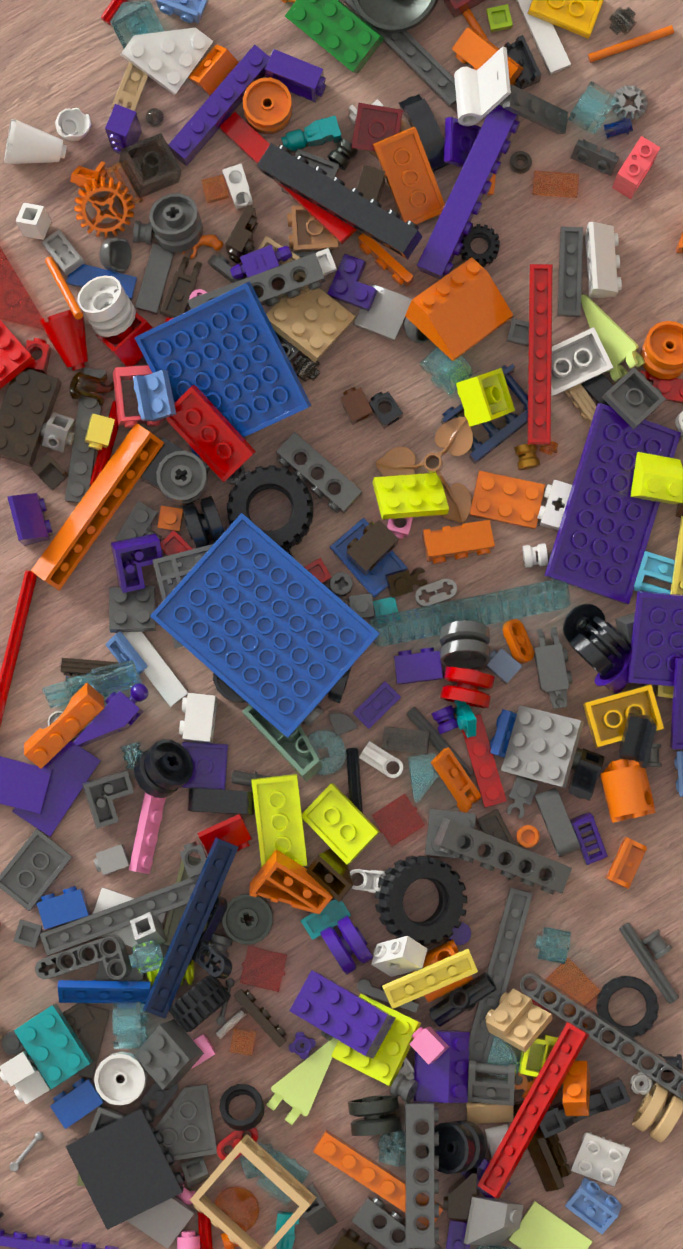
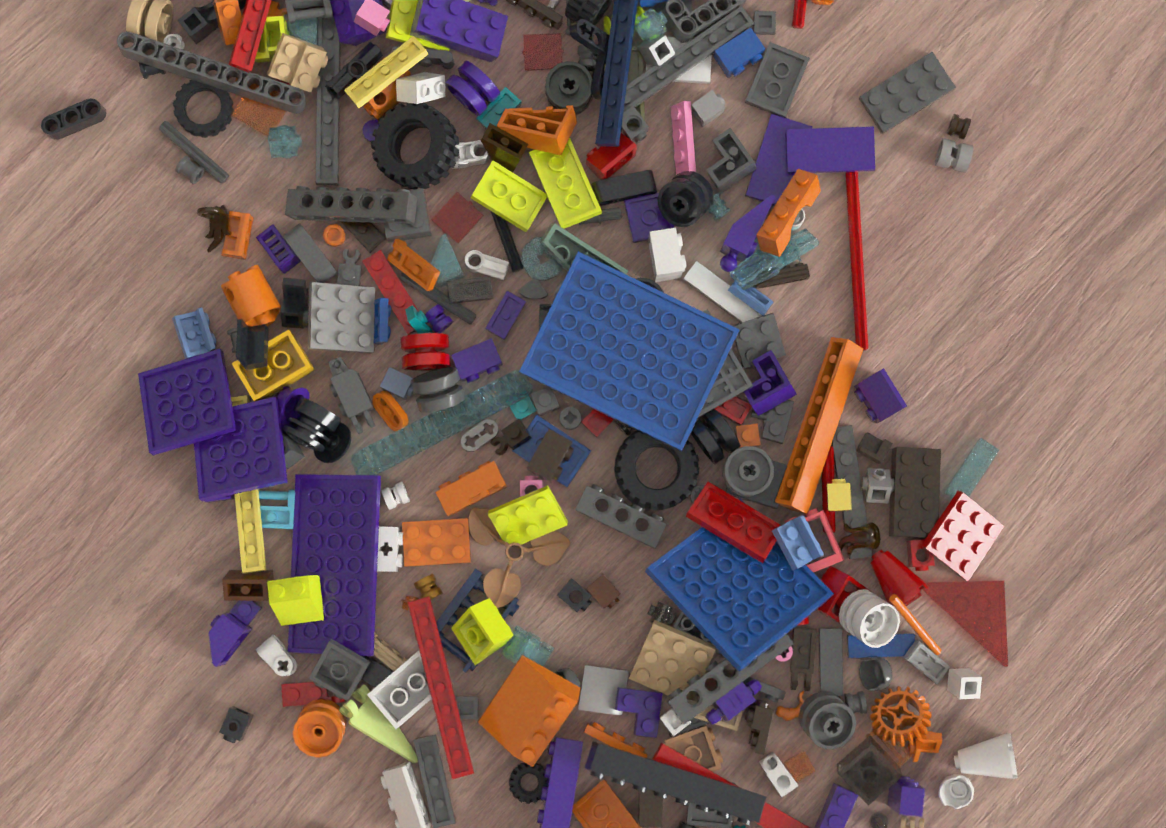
camera: 160 degrees right, 0 degrees up
(642, 880) = (217, 224): none -> dark brown piece

